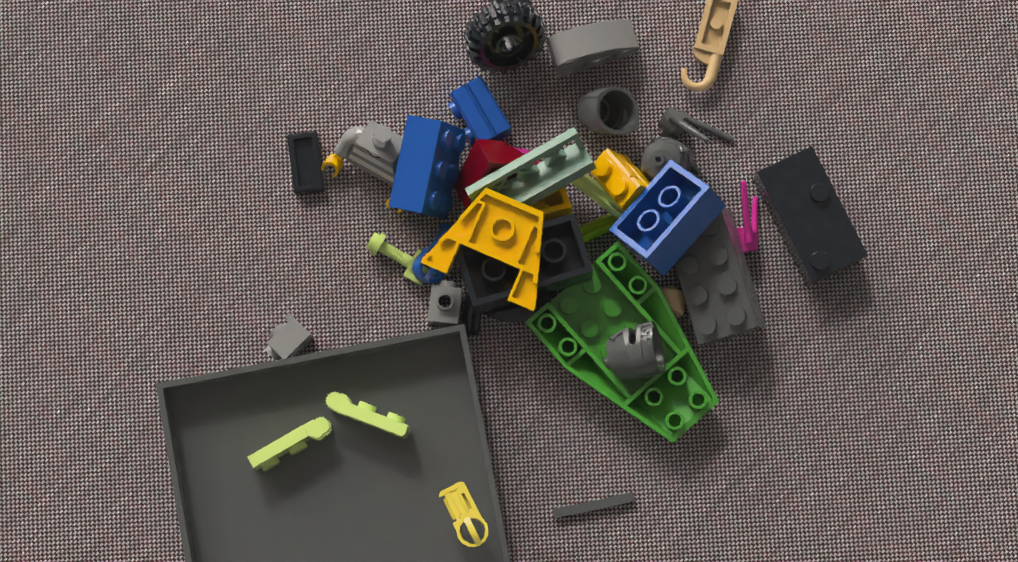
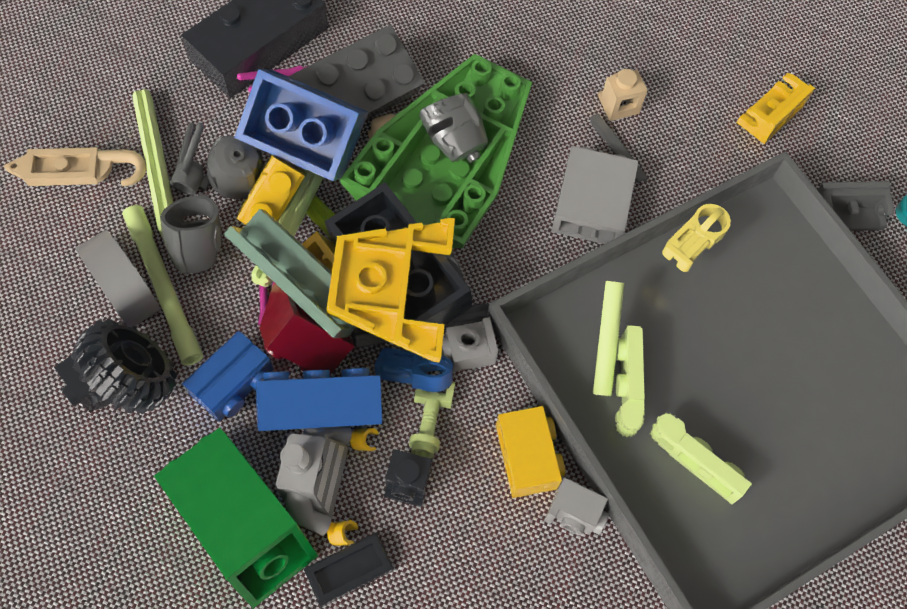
camera: 115 degrees left, 15 degrees down
(343, 320) = (529, 451): none -> yellow brick
(354, 222) = (407, 478): none -> black brick
(369, 89) = (236, 517): none -> green slope
(405, 408) = (608, 338): none -> yellowish green piece
(532, 87) = (181, 332): none -> yellowish green piece
(548, 460) = (595, 195): none -> light grey brick
(642, 526) = (623, 86): none -> tan brick
(704, 100) = (153, 153): none -> yellowish green axle

